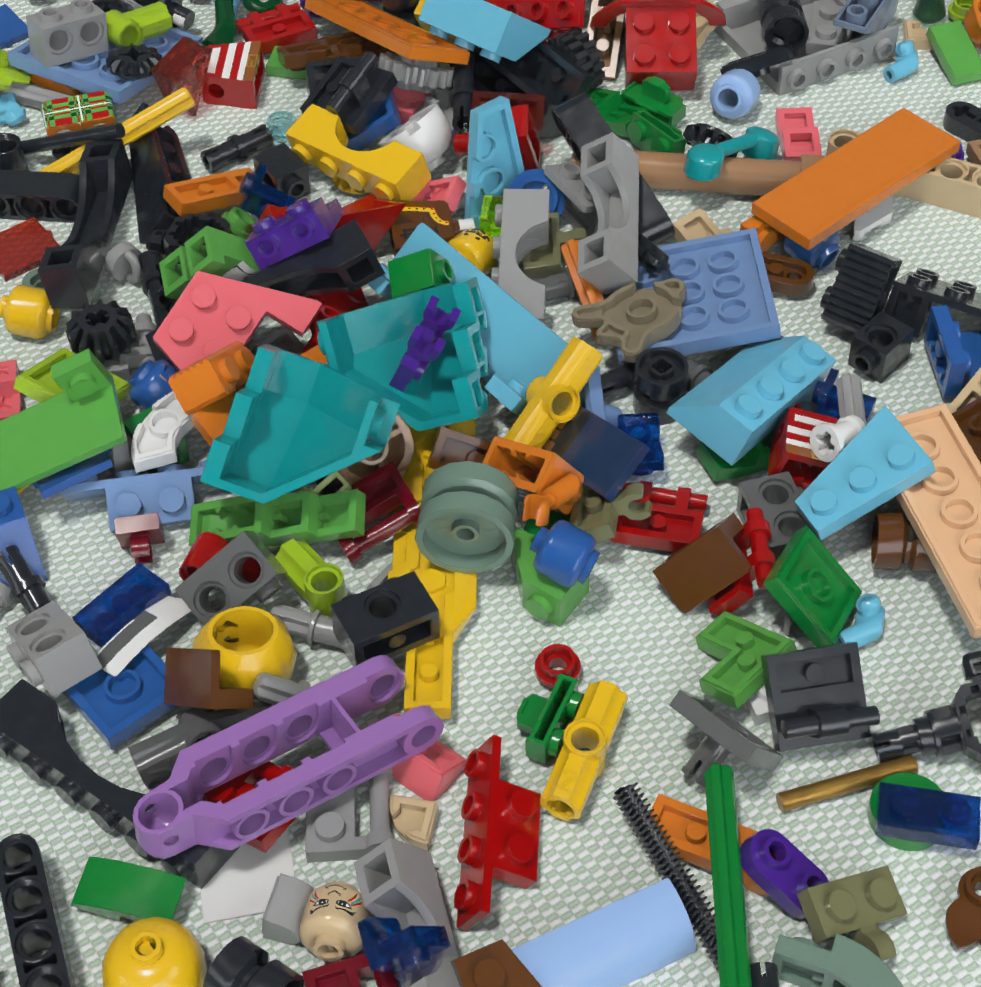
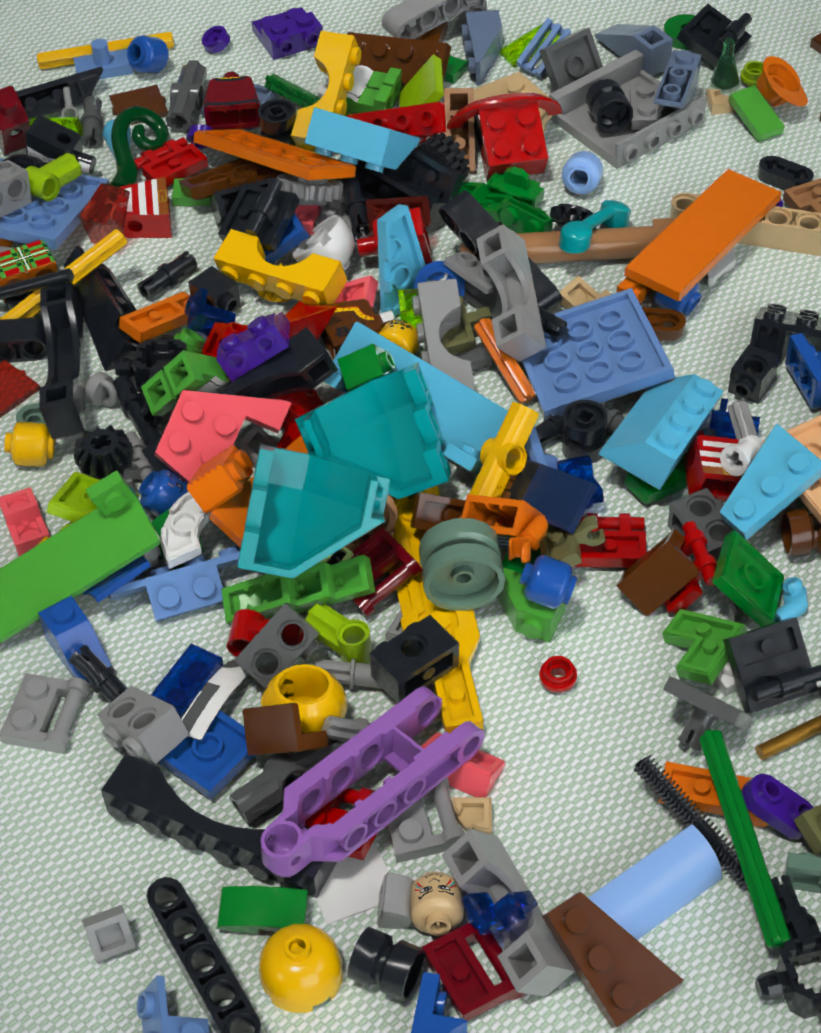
camera: 10 degrees left, 0 degrees up
(132, 61) = (59, 210): black gear -> none
(140, 534) = (184, 619): tile -> none
(278, 125) = (202, 250): clear light blue plate -> none
(424, 344) = (386, 425): dark purple plate -> none
(497, 837) = (544, 814): red bracket -> none
(548, 718) = (561, 716): green piece -> none
(576, 769) = (596, 753): yellow piece -> none
(635, 317) = (550, 377): dark tan tile -> none
(760, 63) = (598, 142): black plate -> none
(797, 133) = (642, 201): coral slope -> none
(860, 286) = (728, 327): black brick -> none
(905, 62) = (715, 127): medium azure arm -> none

